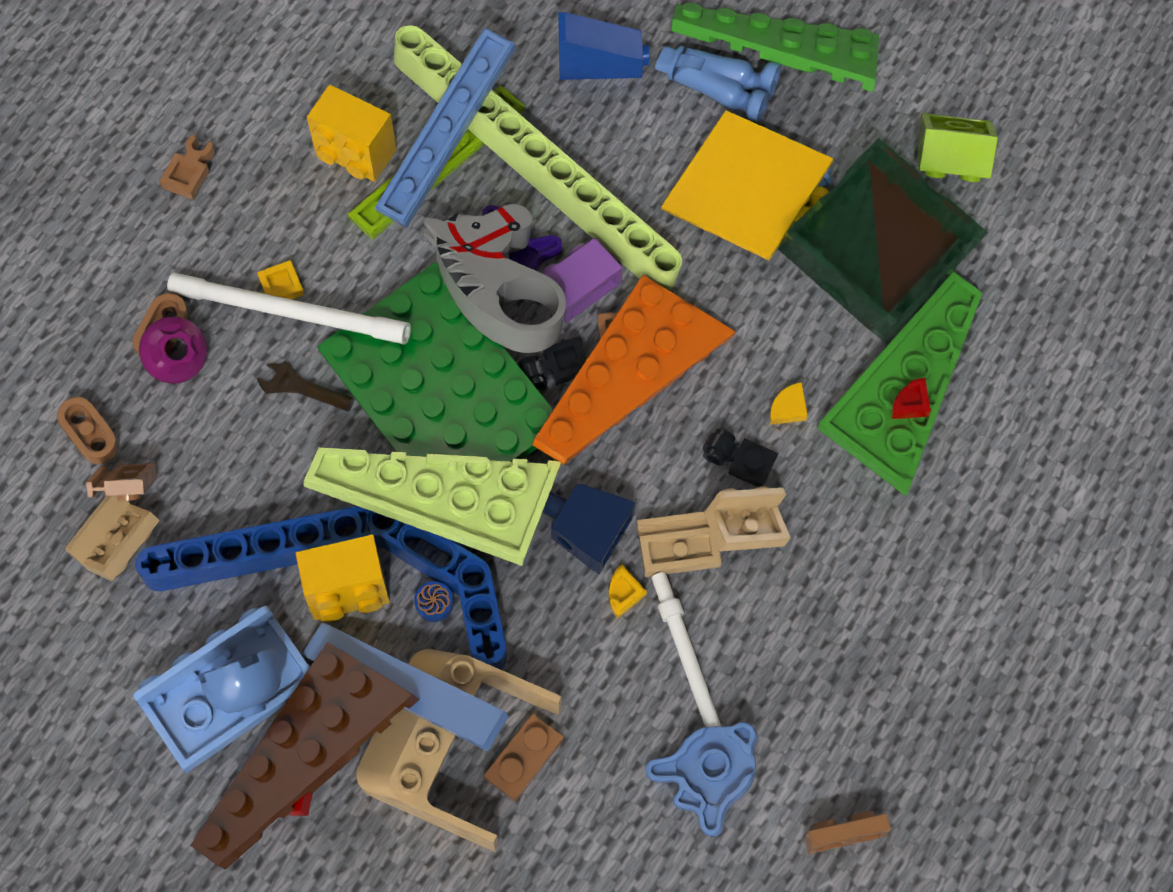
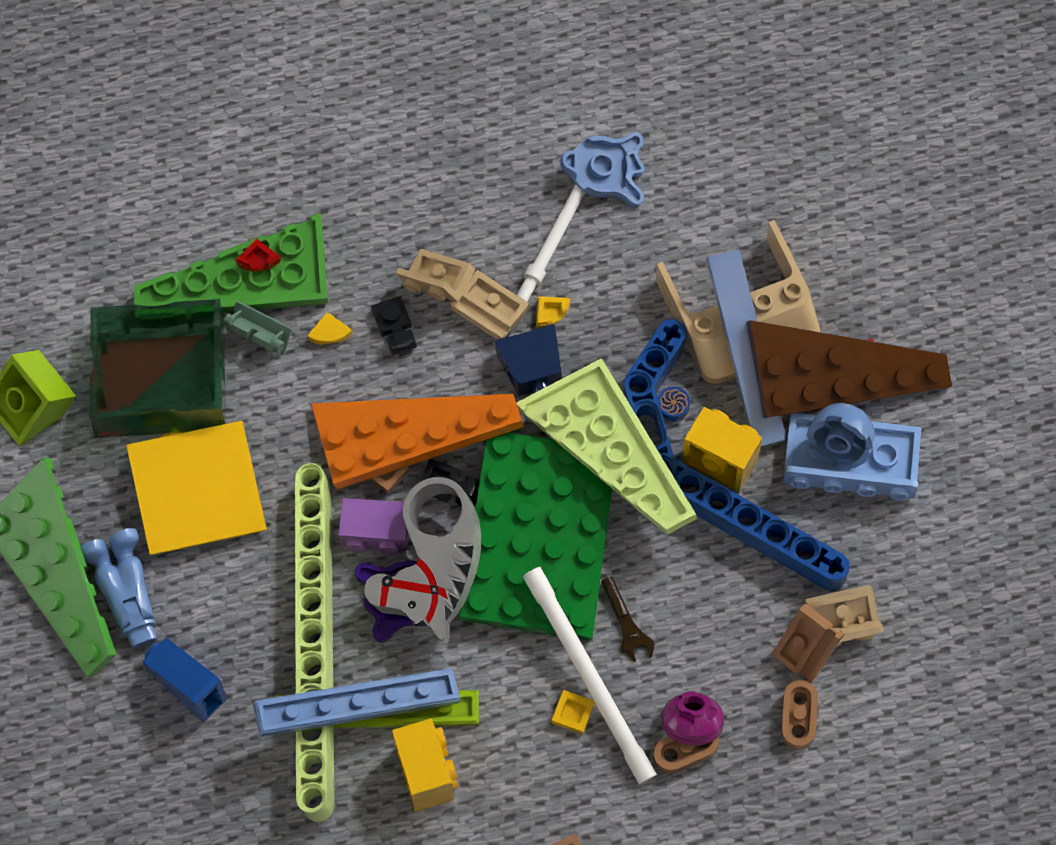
camera: 135 degrees left, 0 degrees up
(523, 758) = (693, 270): medium nougat plate -> none
(831, 351) = (258, 327): none -> sand green hinge
(862, 828) = (574, 77): medium nougat plate -> none

